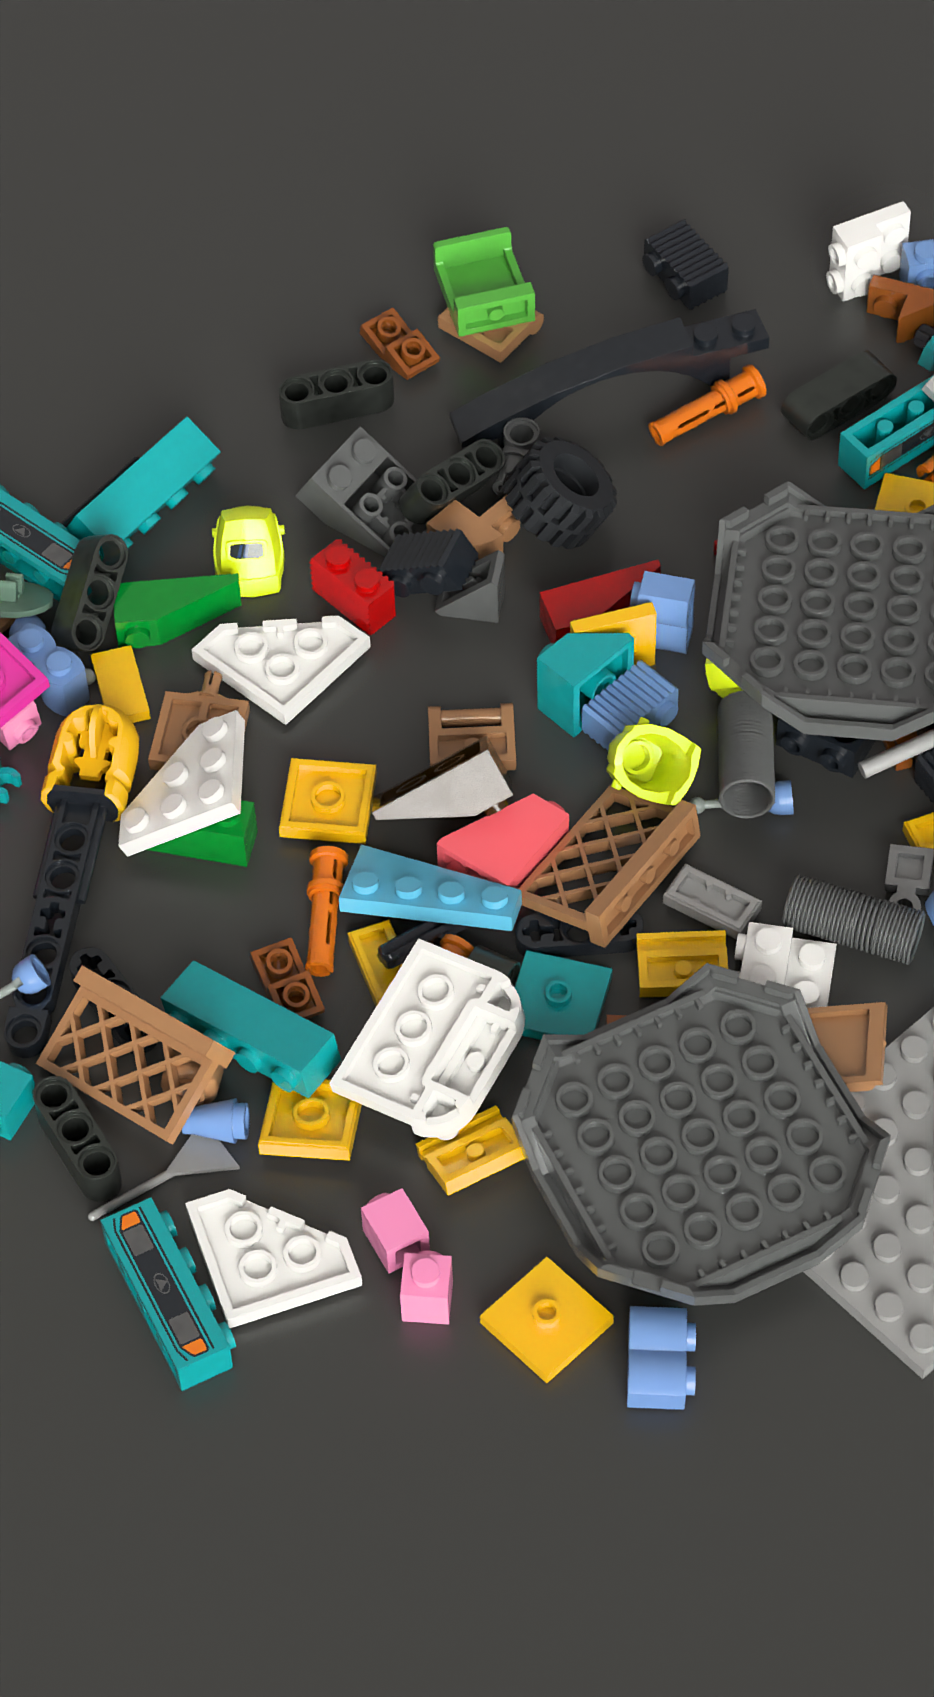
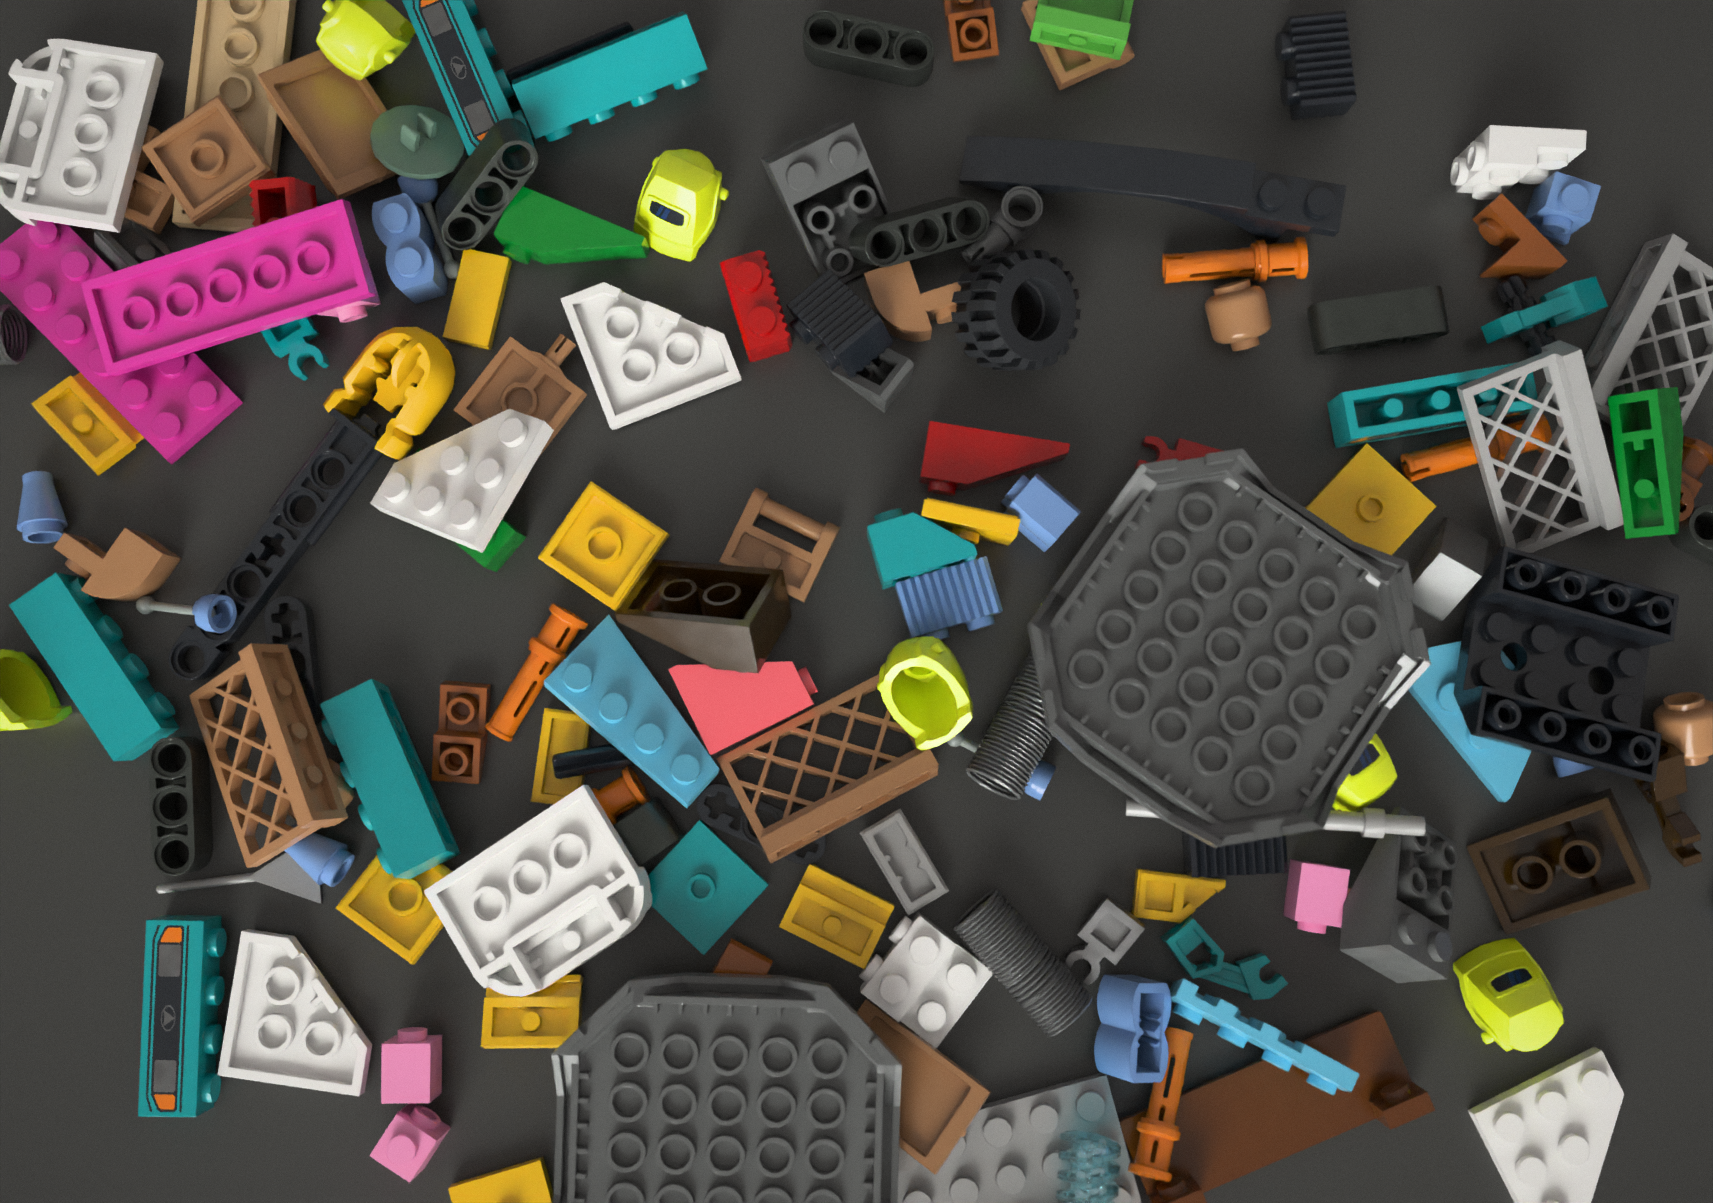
camera: 30 degrees right, 30 degrees up
(731, 434) = (1238, 314): none -> medium nougat head

